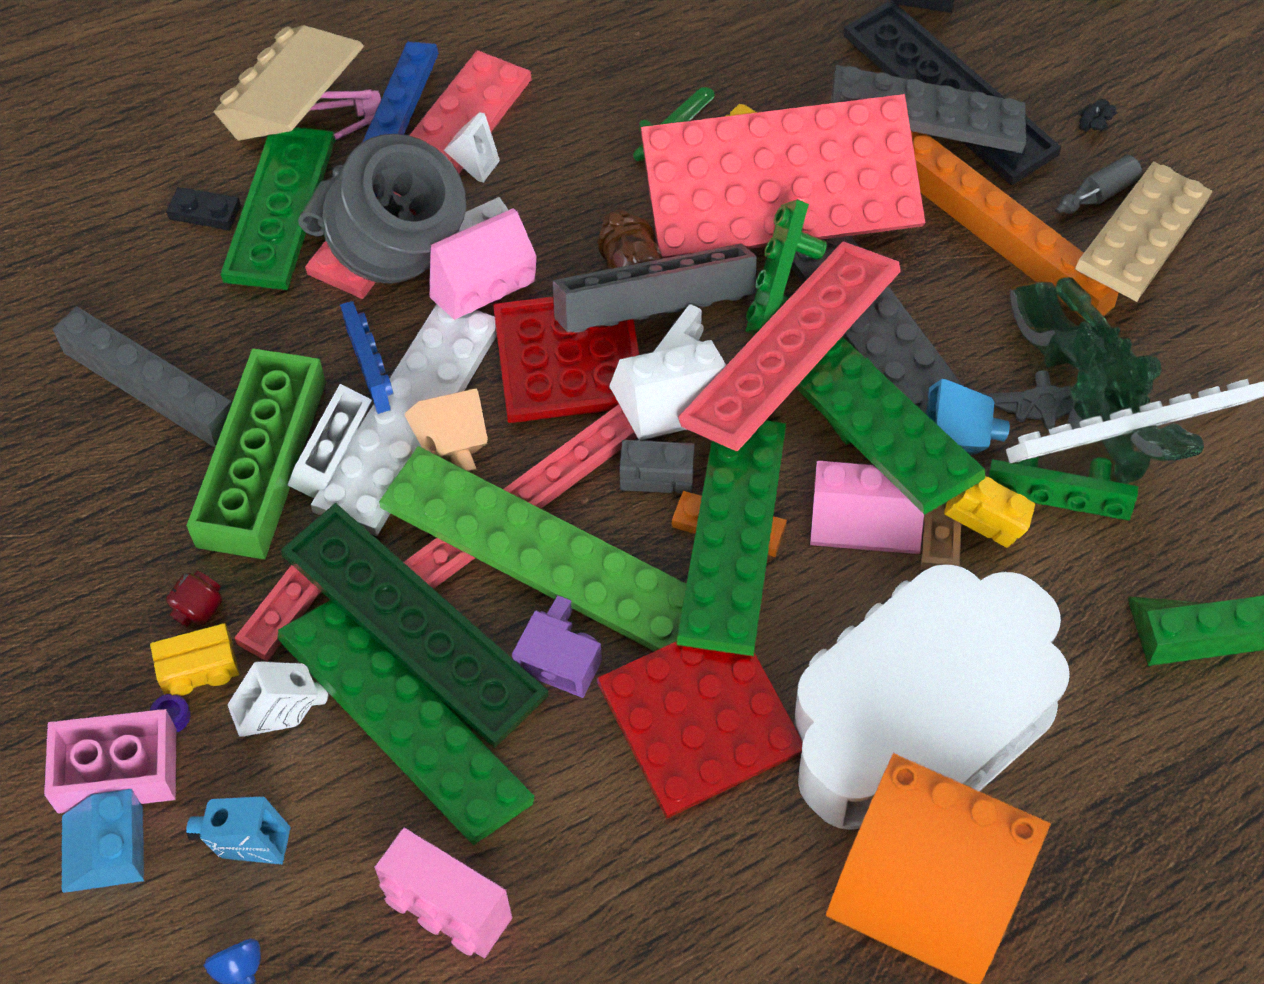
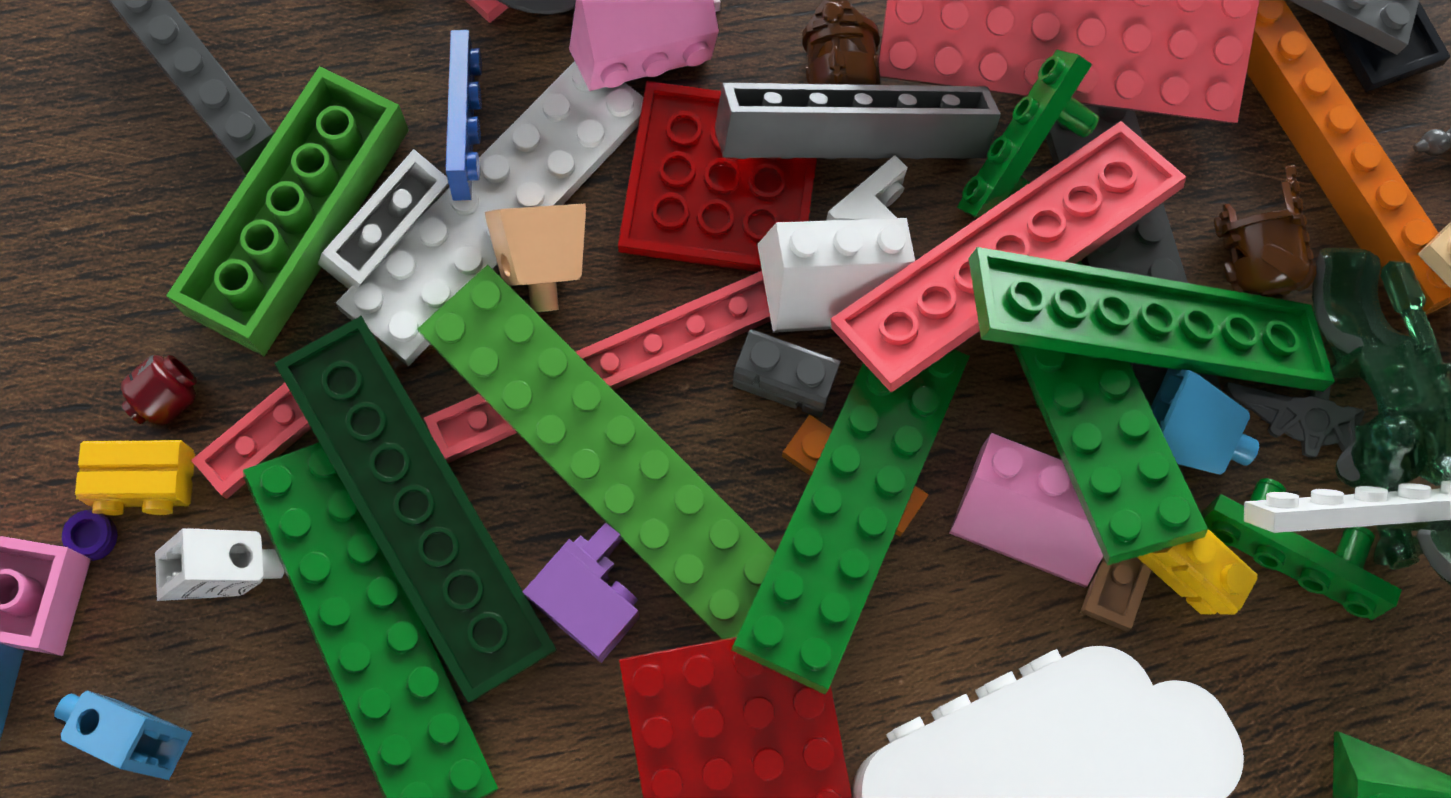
camera: 10 degrees right, 15 degrees up
(903, 357) = (1147, 320): none -> green plate
(973, 296) = (1273, 246): none -> reddish brown helmet

